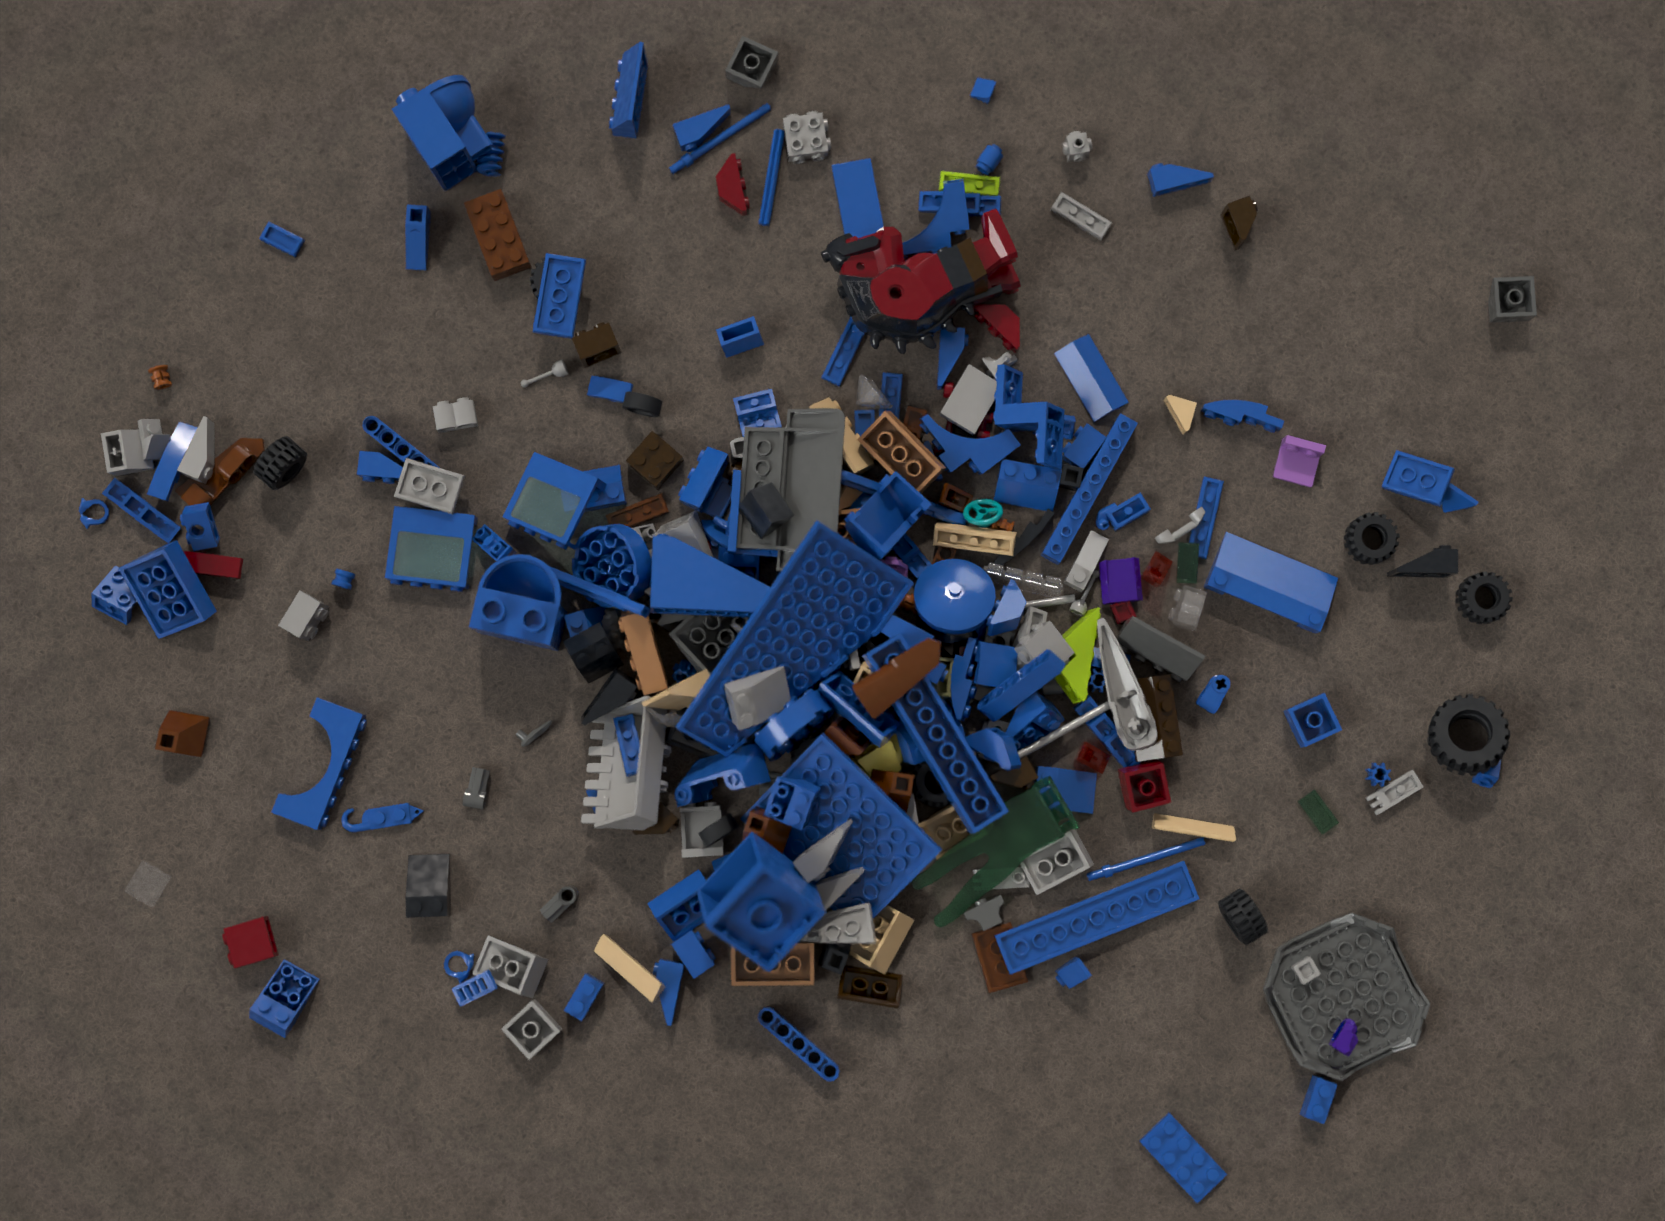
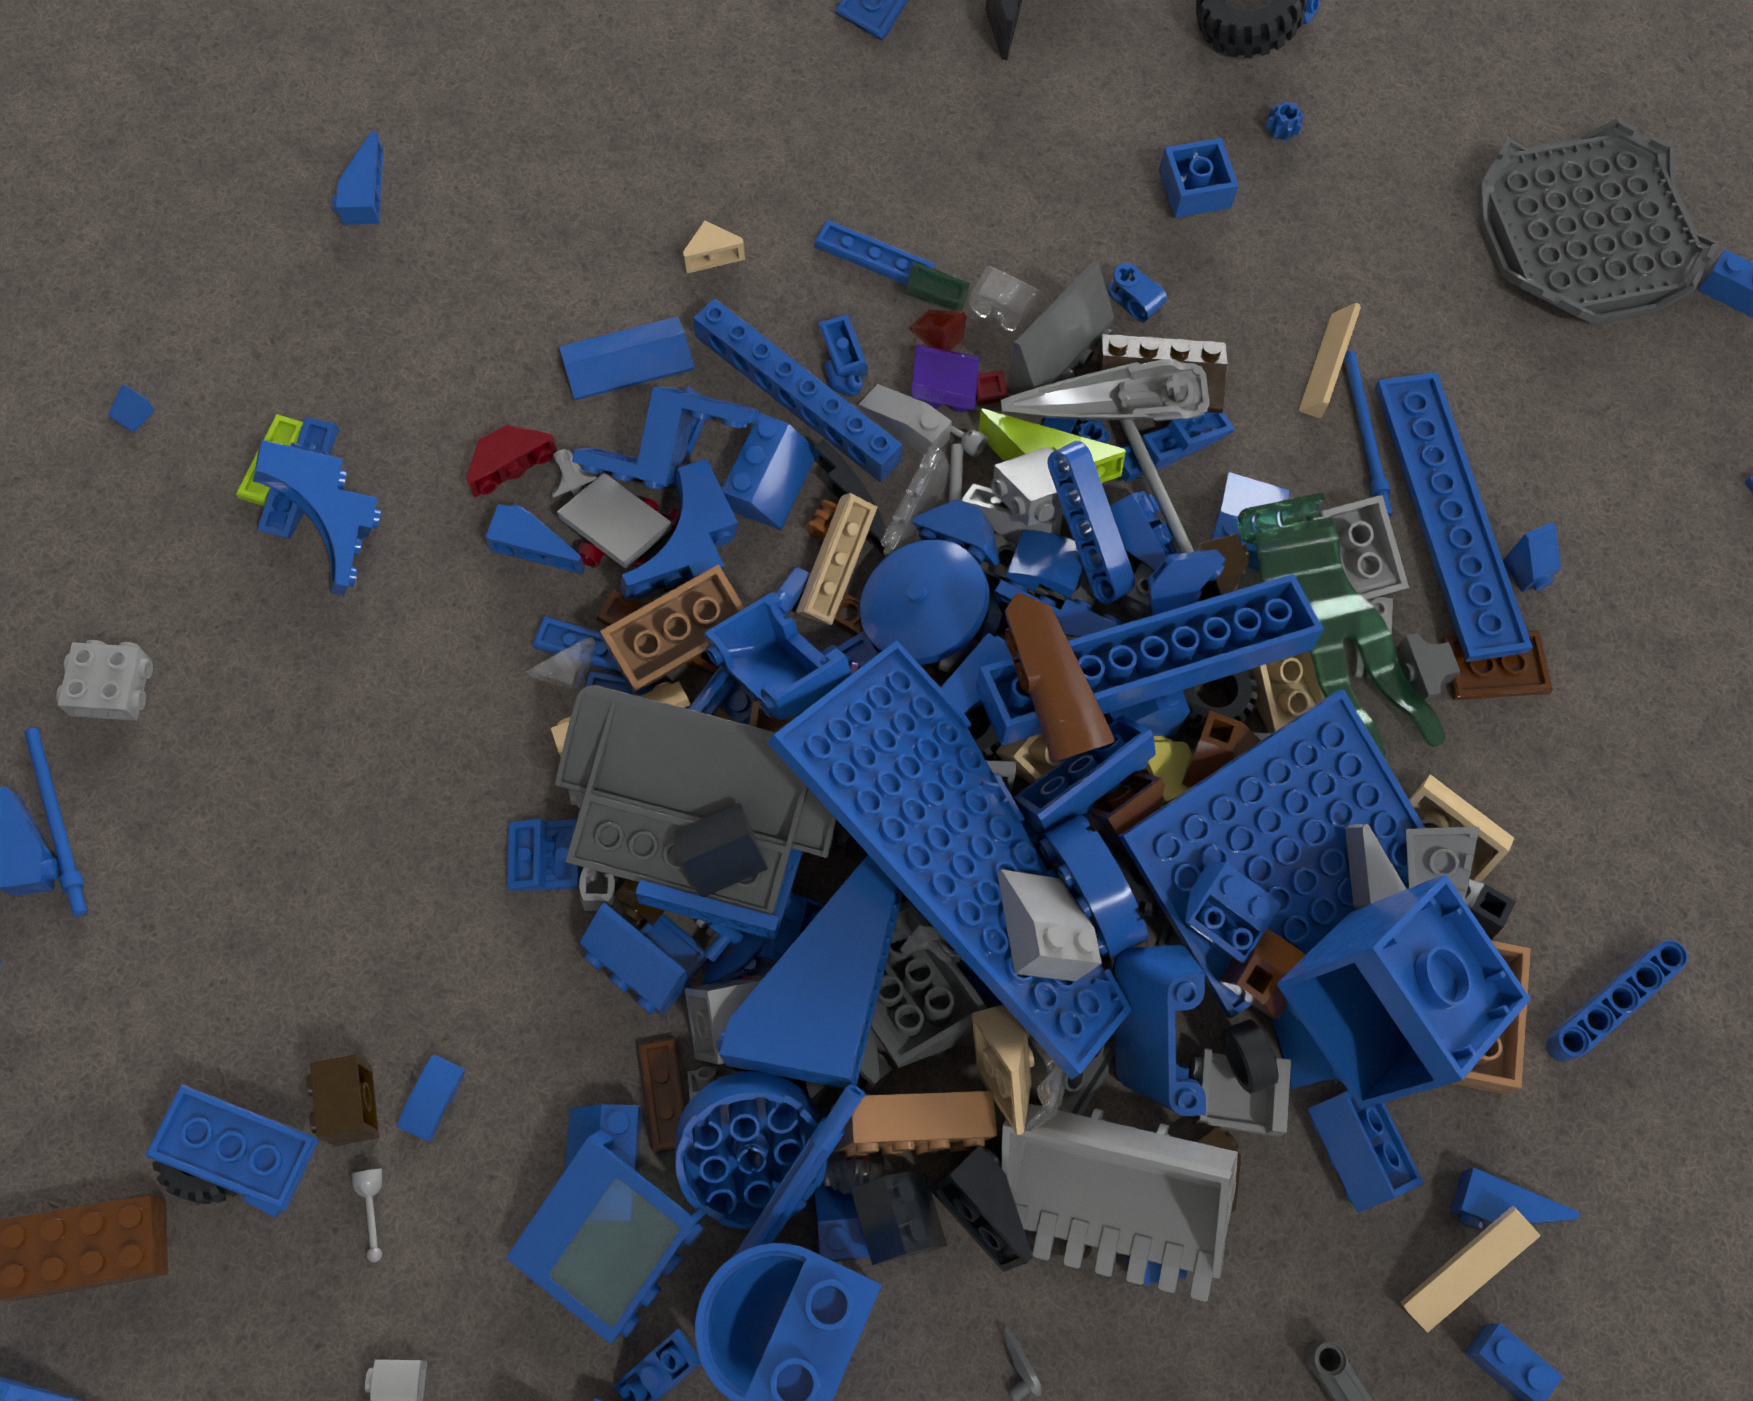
camera: 80 degrees left, 15 degrees down
(628, 742) = (1075, 1186): blue tile -> none
(642, 404) = (474, 1041): black tyre -> none
(654, 460) = (578, 1041): dark brown brick -> none
(683, 670) = (960, 1065): blue gear -> none
(693, 953) = (1451, 1149): blue brick -> none
(731, 186) = (145, 816): dark red slope -> none
(740, 337) = (406, 851): blue brick -> none
(771, 177) = (153, 751): blue axle -> none
(816, 859) = (1320, 878): light grey slope -> none
(843, 354) = (474, 692): blue tile -> none
(857, 197) = (239, 626): blue tile -> none
(870, 987) = (1536, 865): dark brown slope -> none
(924, 293) = (422, 540): piece -> none
(954, 498) = (762, 578): reddish brown slope -> none
(984, 515) = (800, 542): teal piece -> none
(989, 159) = (243, 421): blue brick -> none
(1070, 477) = (775, 402): black brick -> none
(1074, 152) = (267, 298): light grey brick -> none
(1081, 216) = (375, 320): light grey tile -> none
(1084, 446) = (729, 380): blue brick -> none
(1092, 757) = (1203, 474): clear red slope -> none
(1144, 785) = (1262, 405): dark red brick -> none
(1167, 537) = (874, 257): light grey bar -> none
(1234, 410) = (732, 171): blue slope -> none
(1238, 219) = (454, 113): dark brown slope -> none
(1243, 916) = (1474, 314): black tyre -> none
(1272, 582) = (988, 191): blue slope -> none
(1298, 460) = (818, 122): medium lavender bracket -> none
(1306, 970) = (1558, 253): light grey plate -> none
(1318, 811) = (1325, 205): clear green tile -> none
(1345, 1037) = (1657, 226): dark purple rock -> none
(1383, 527) = (949, 75): black tyre -> none
(1395, 791) = (1318, 118): light grey hinge -> none

